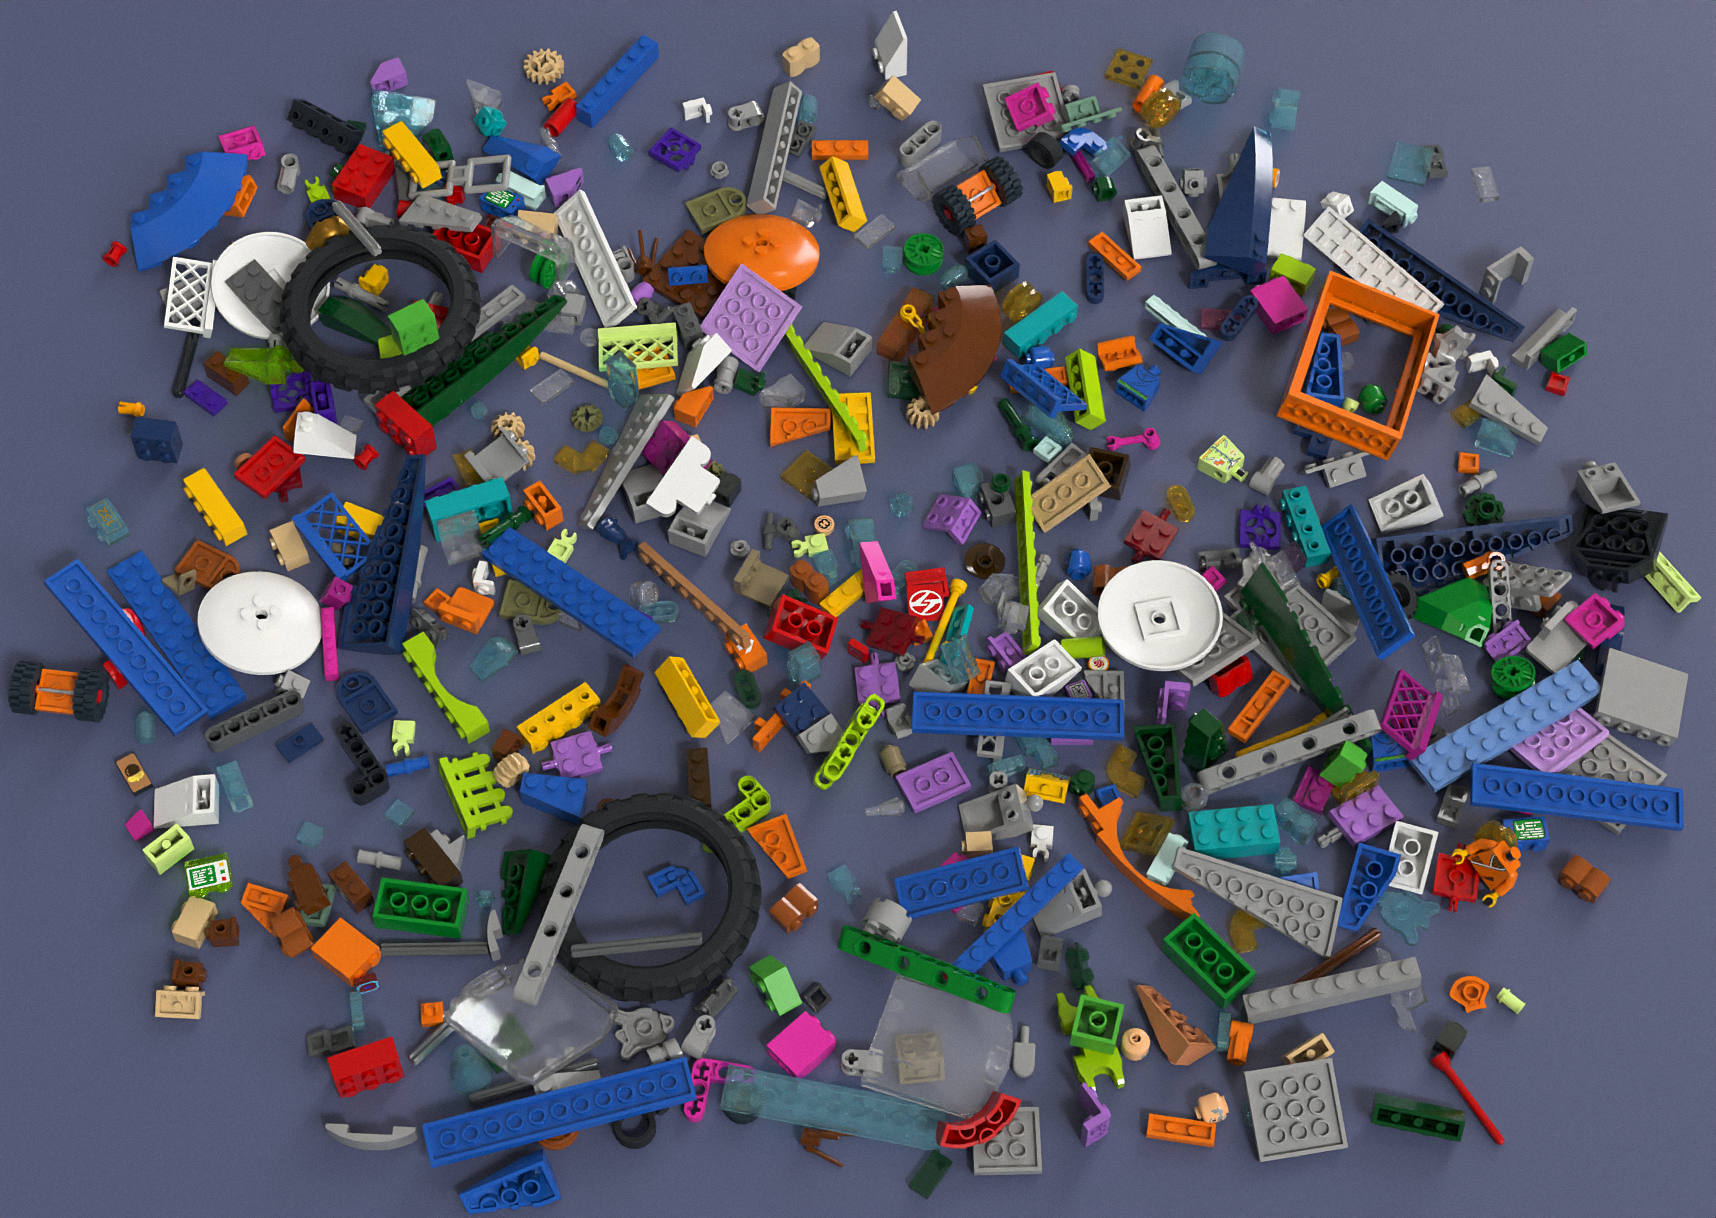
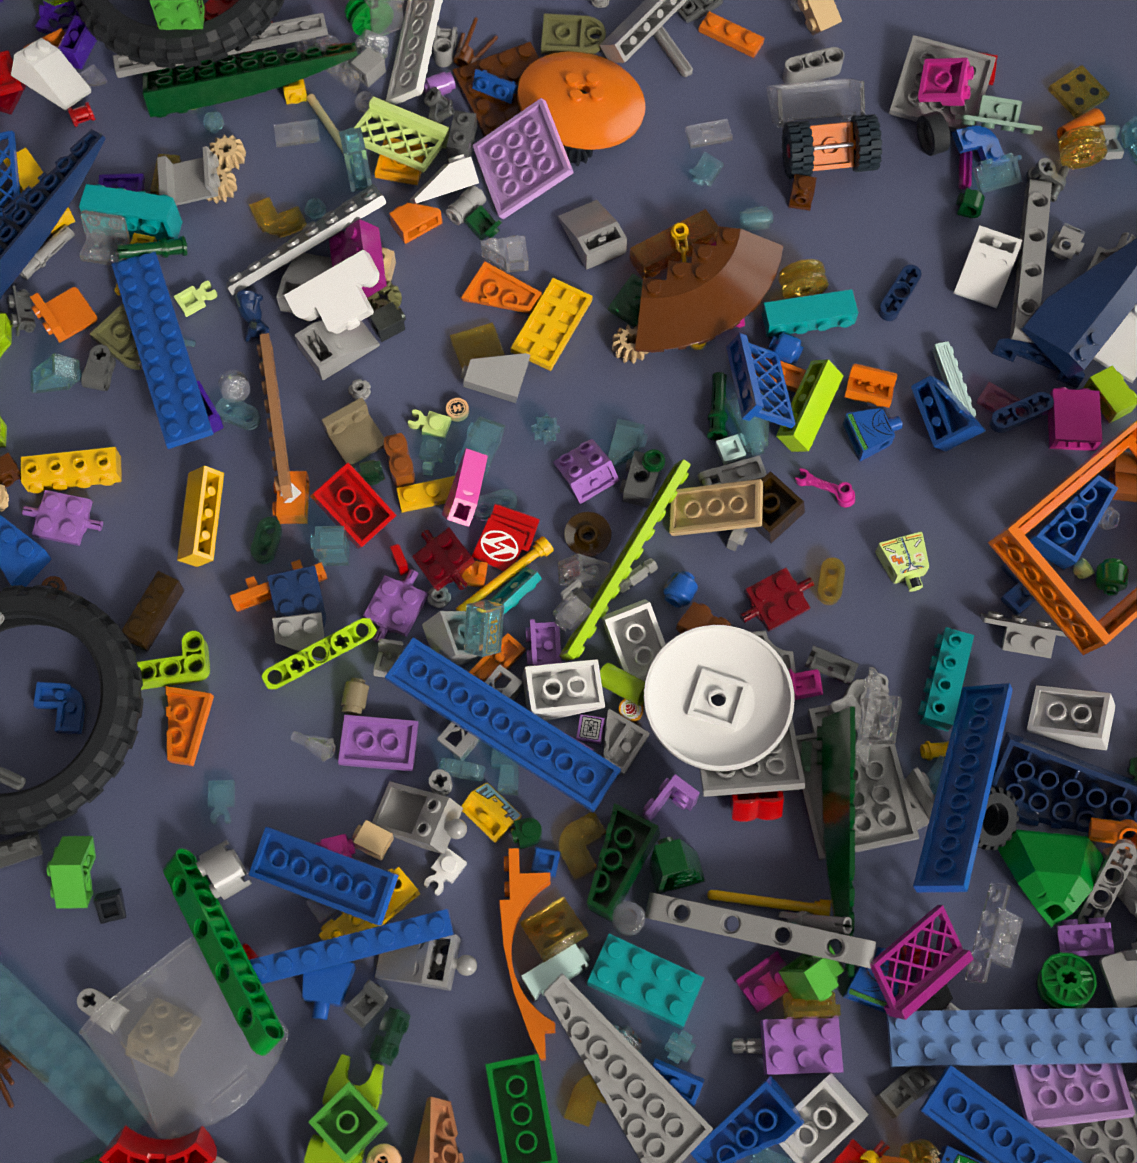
camera: 30 degrees right, 10 degrees up
(405, 425) = (131, 106): red brick -> none
(434, 600) = (48, 289): orange tile -> none
(480, 580) = (98, 288): white bracket -> none
(543, 505) = (202, 246): orange brick -> none
(595, 419) = (311, 188): olive gear -> none
(620, 703) = (132, 489): reddish brown arch -> none
(732, 715) = (233, 558): clear wing -> none
(781, 529) = (411, 390): dark grey piece -> none
(794, 908) = (151, 799): dark orange brick -> none
(801, 1046) = (56, 954): dark pink brick -> none
(806, 213) = (653, 81): clear bracket -> none
(823, 385) = (548, 262): lime plate -> none
(843, 194) = (701, 79): yellow brick -> none
(923, 254) = (741, 180): green wheel -> none
(992, 266) = (799, 228): dark blue brick -> none
(1023, 1055) = (269, 1099): light grey piece -> none
(1058, 187) = (924, 178): yellow brick -> none
(1070, 93) = (1001, 88): light grey bush -> none
(1114, 256) = (935, 280): orange plate -> none
(1259, 706) = (765, 855): orange hinge -> none
(1260, 540) = (888, 668): dark purple piece -> none
(1265, 479) = (937, 603): light grey piece -> none
(1295, 556) = (911, 707): clear purple brick -> none
(1296, 822) = (722, 1016): clear light blue brick -> none

